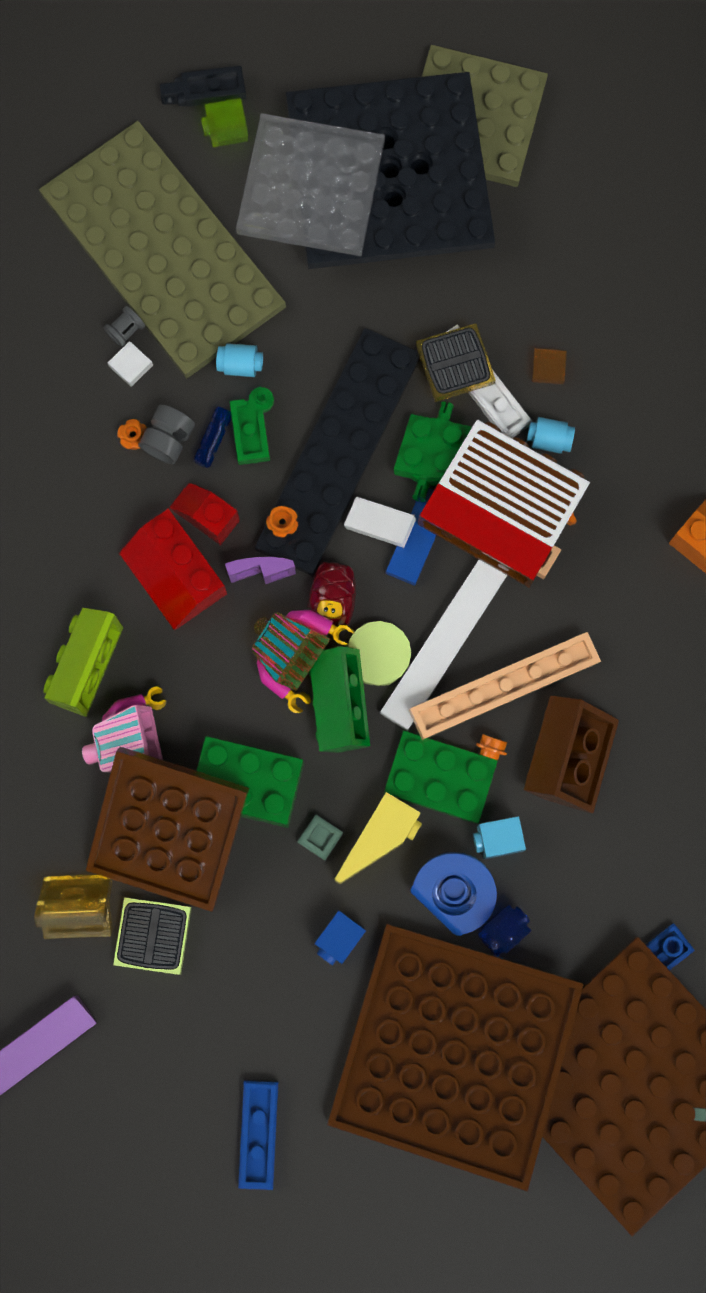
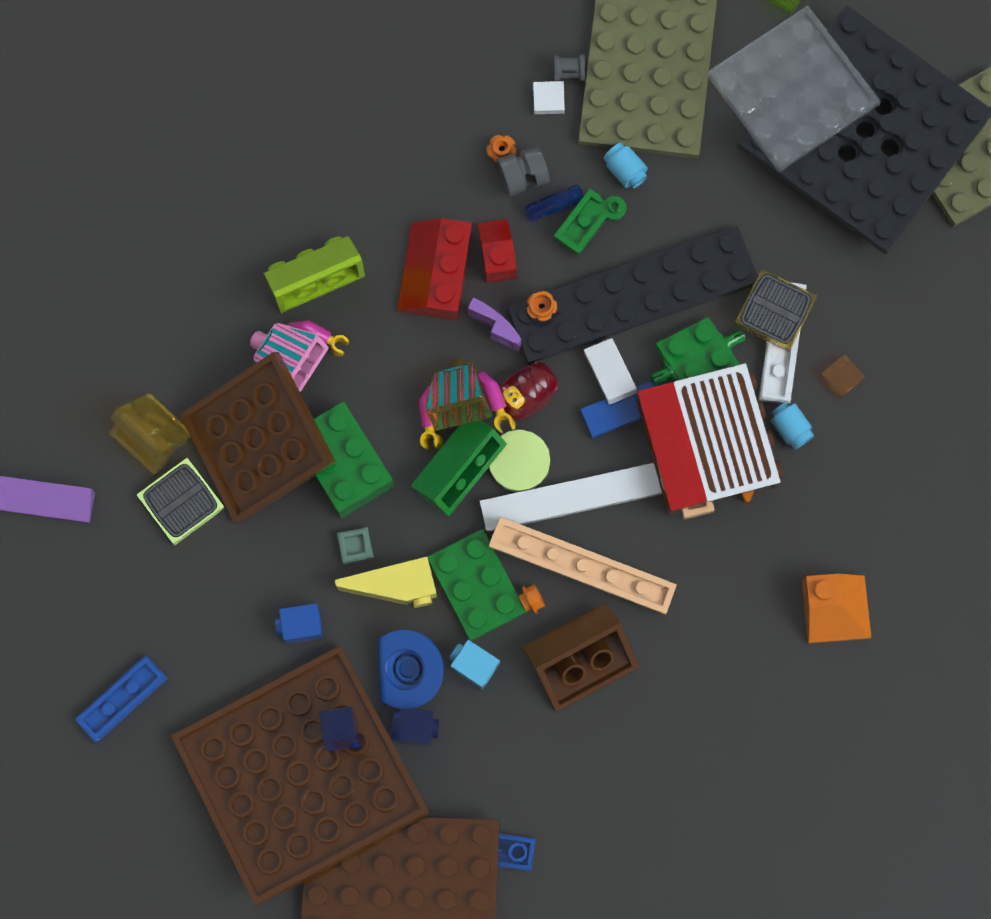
camera: 45 degrees right, 0 degrees up
(455, 989) = (339, 728): none -> clear blue brick

